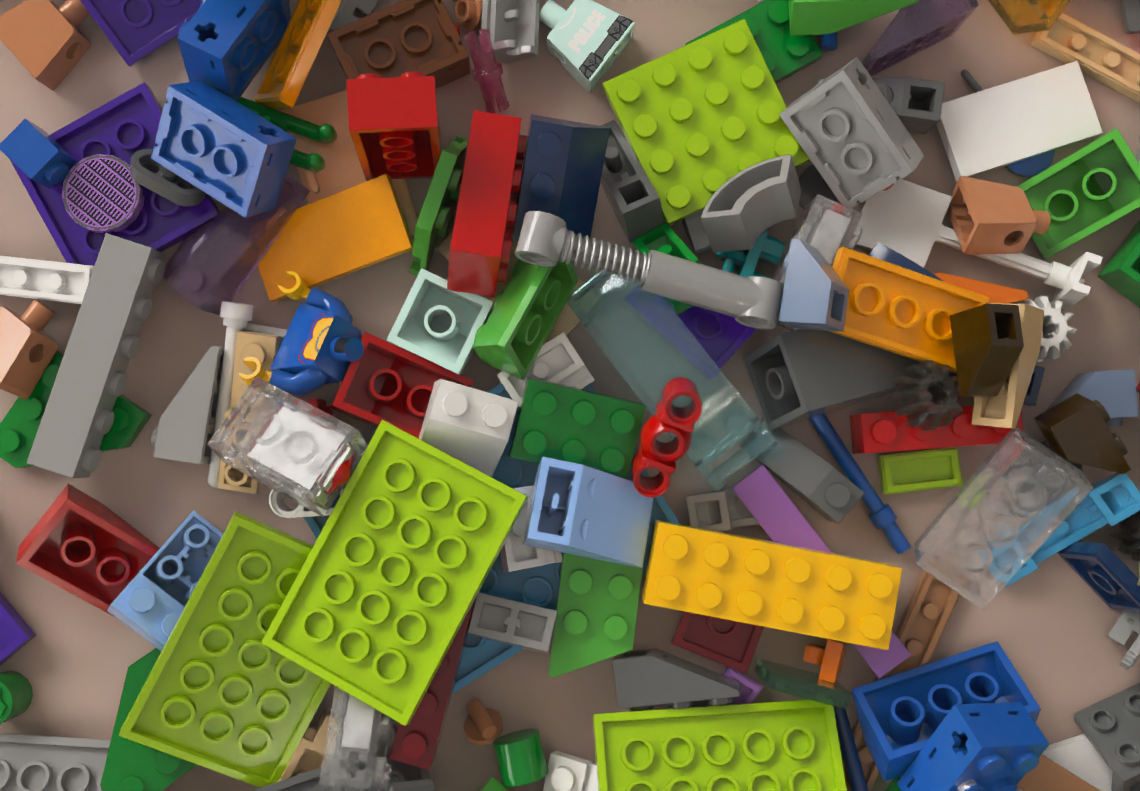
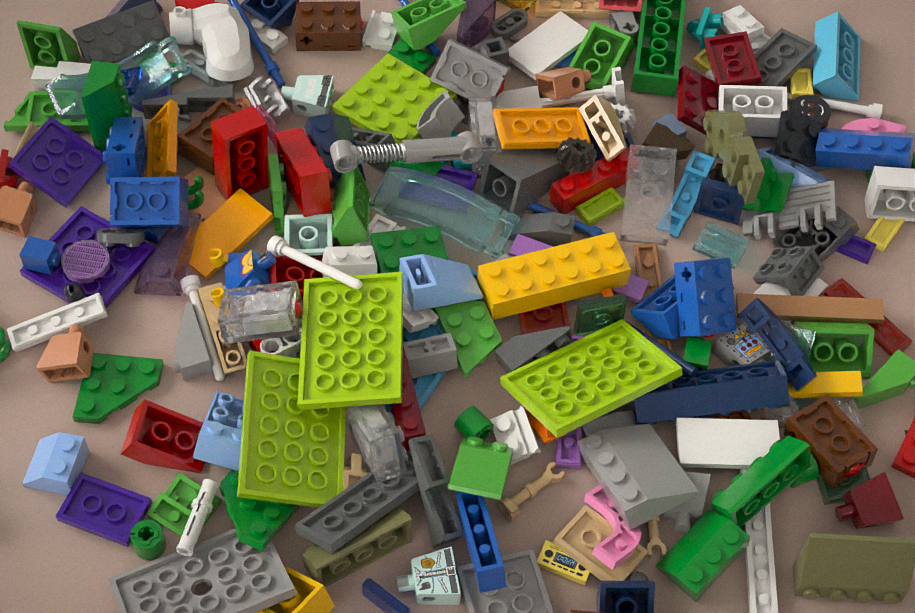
camera: 35 degrees left, 30 degrees down
(61, 246) = (74, 292): none -> black hinge
(74, 665) = (175, 505): none -> bright green slope
(82, 695) = (201, 507): none -> white pin
(97, 358) = (124, 335): light grey brick -> none
(379, 332) = (280, 247): none -> white piece
(482, 724) = (442, 421): nougat plate -> none
(660, 454) = (460, 217): red piece -> none
(812, 291) = (492, 129): sand blue slope -> none
(976, 46) = (509, 23): none -> dark grey plate
(985, 347) = (588, 117): dark brown slope -> none
(1061, 639) = (721, 243): none -> clear light blue plate

